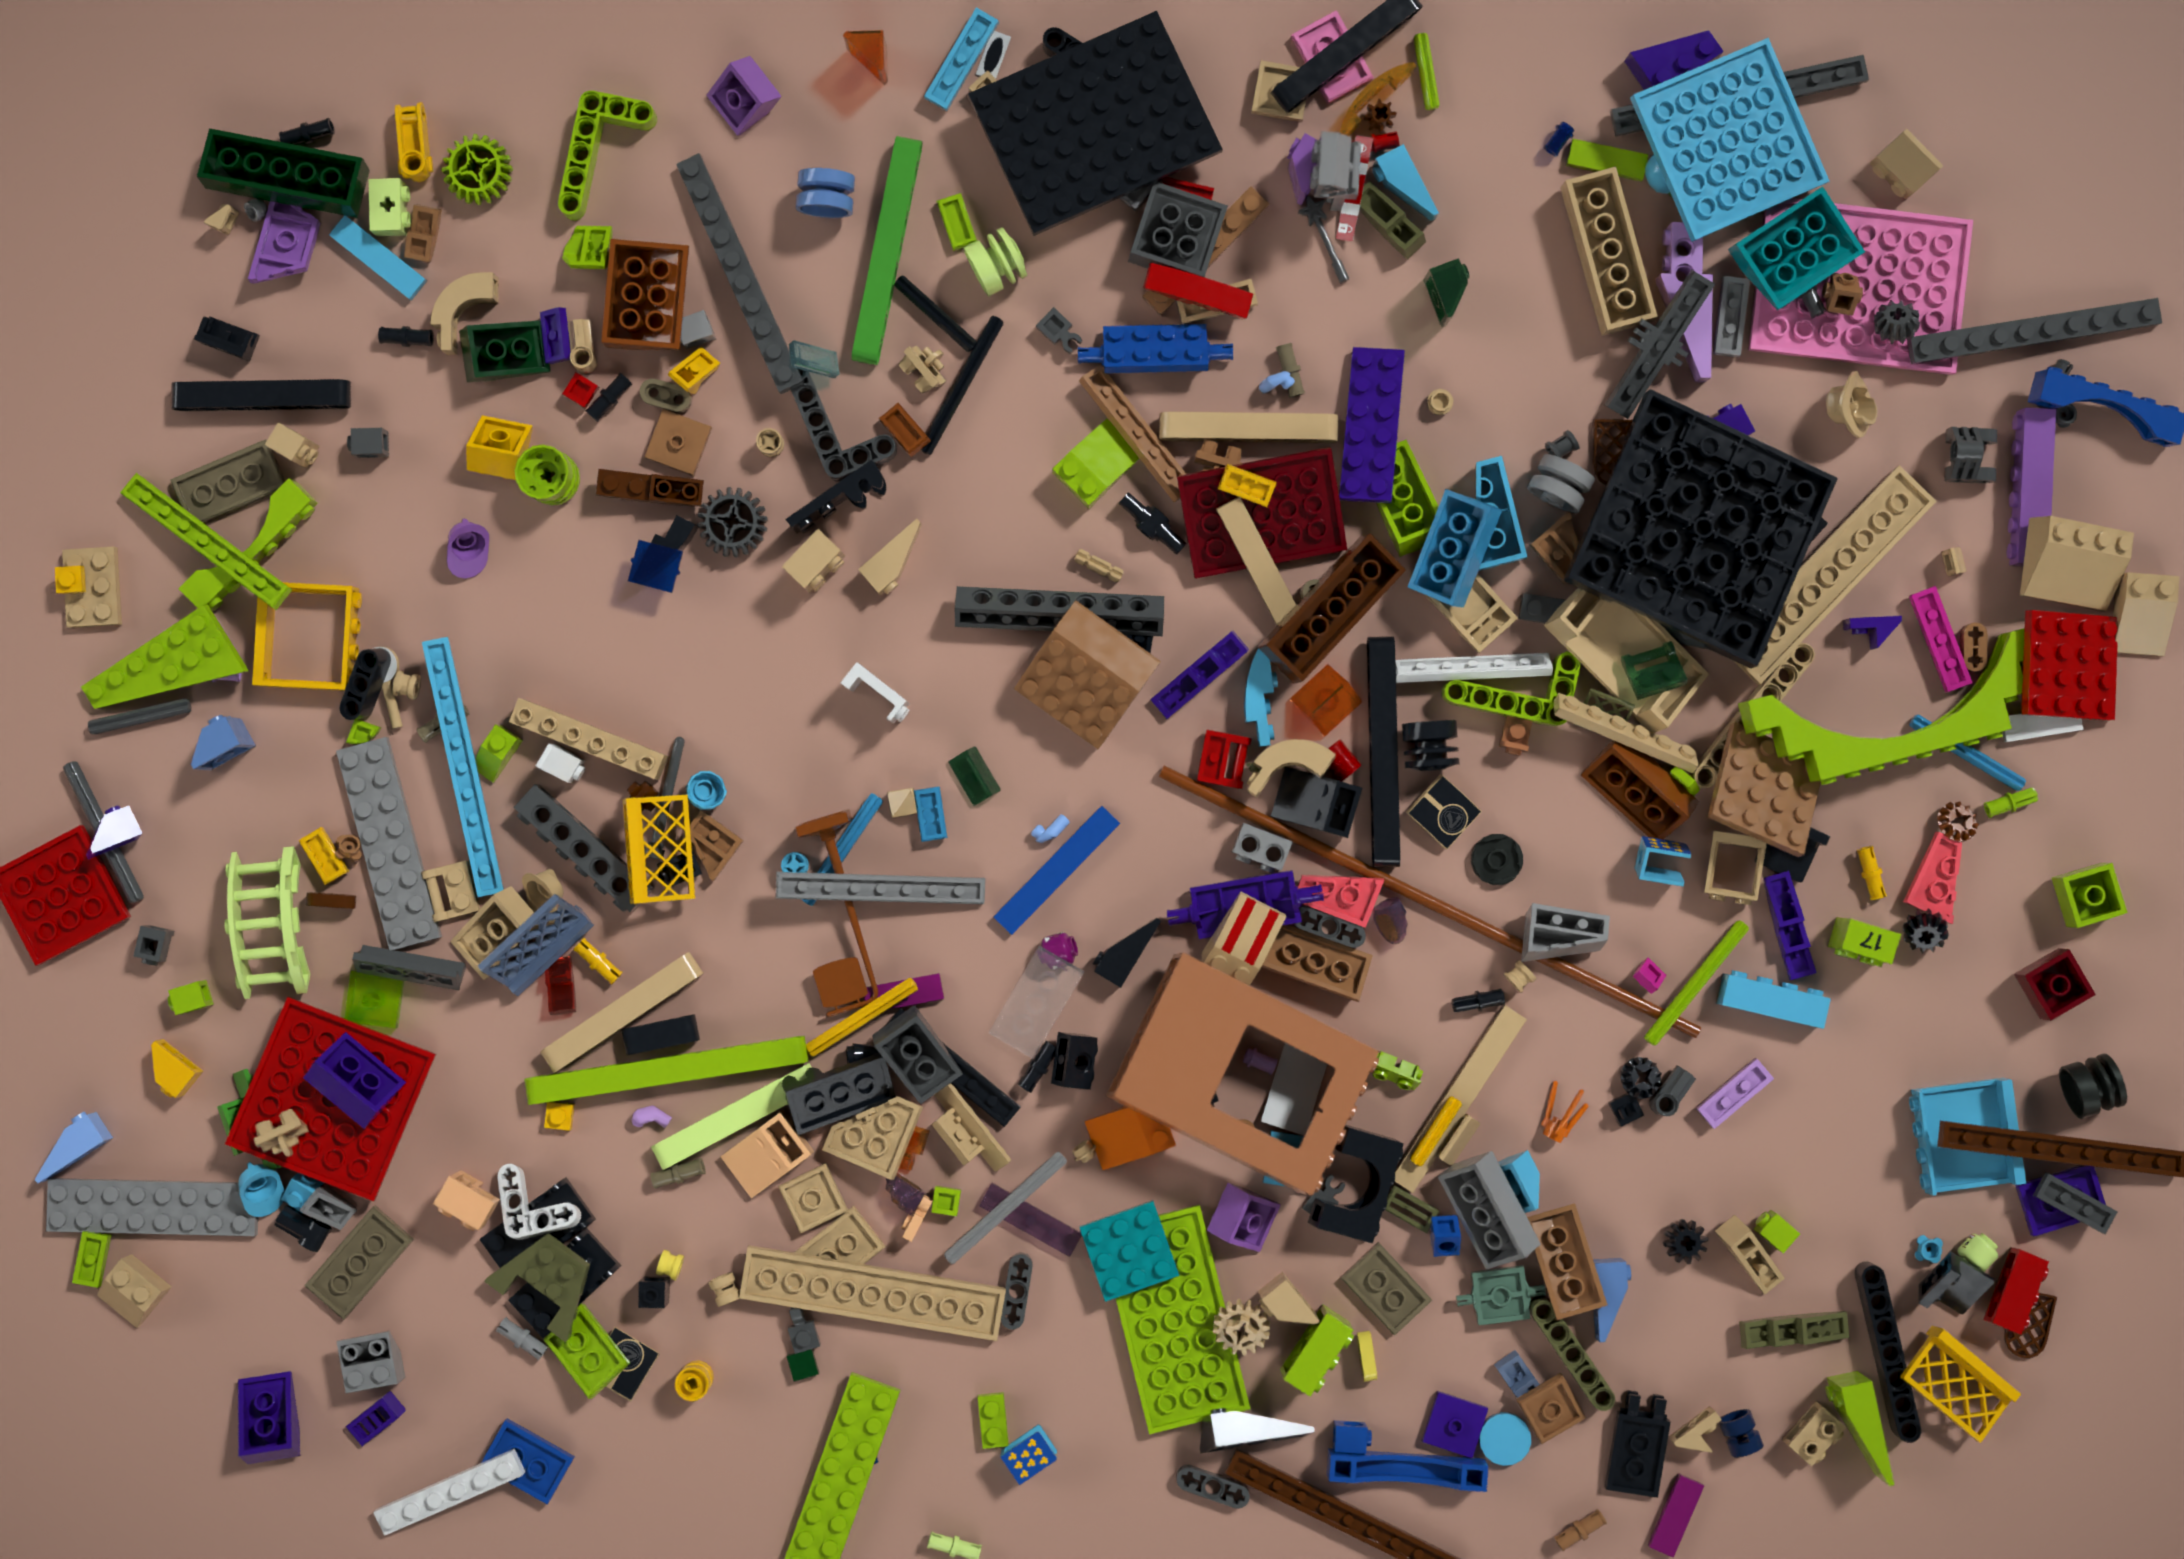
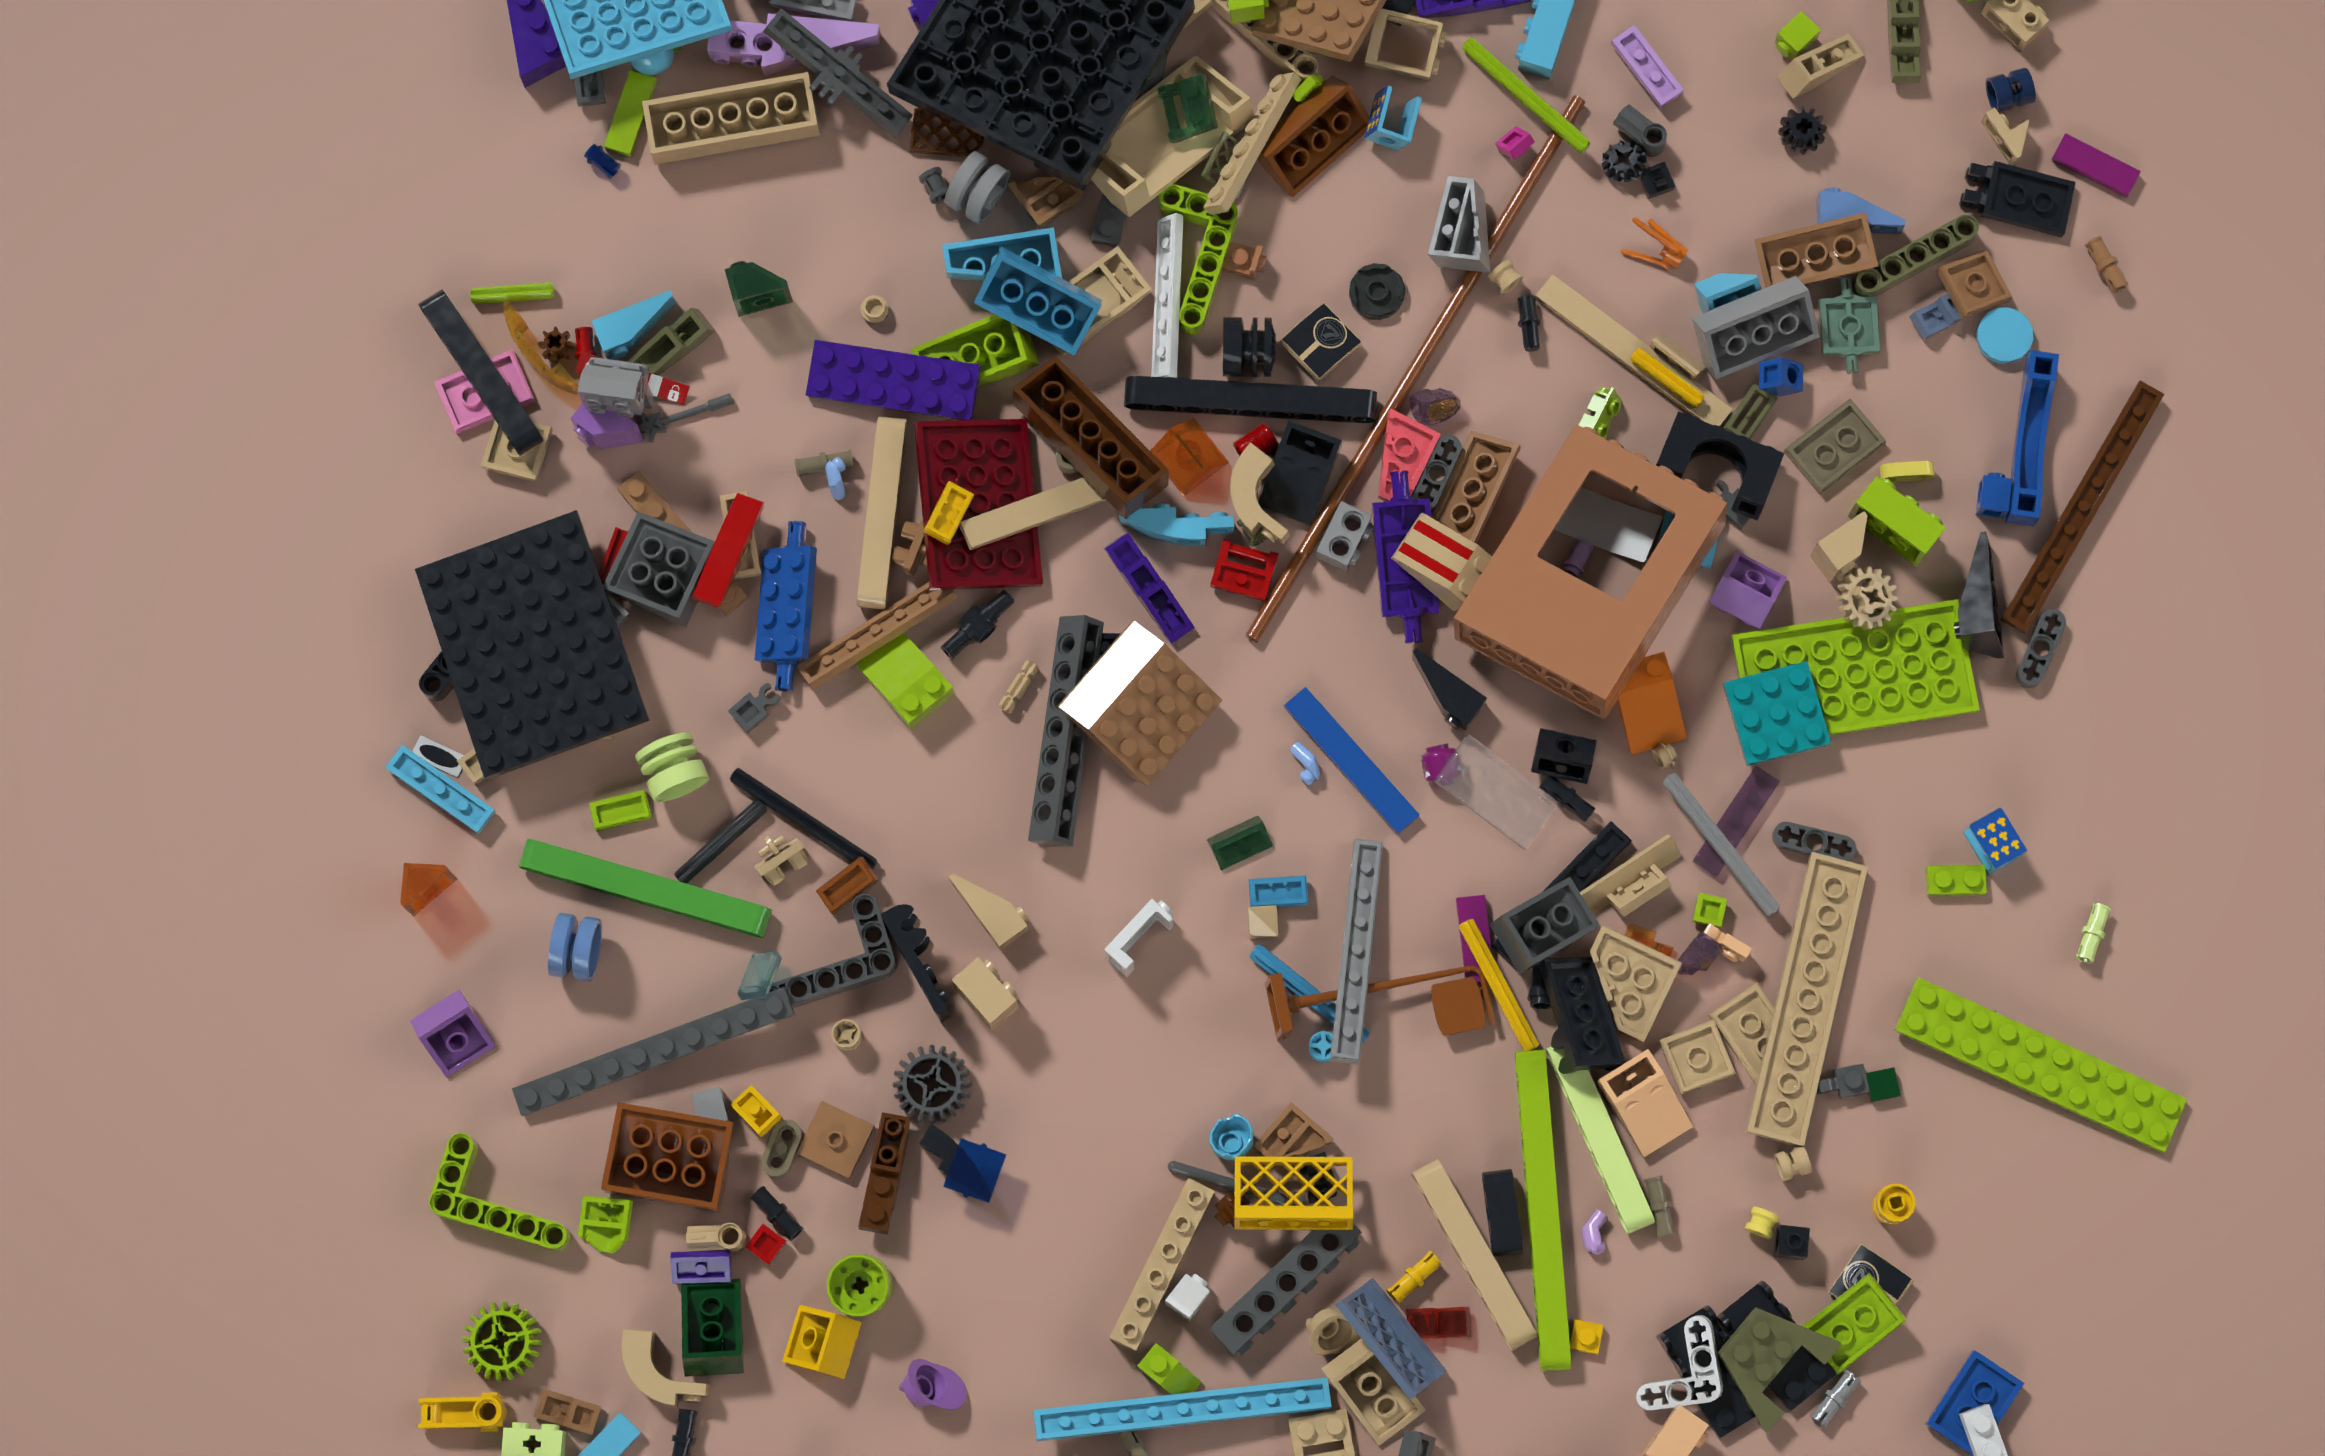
camera: 80 degrees left, 10 degrees down
(1455, 1424) = (1986, 386): dark purple plate -> none

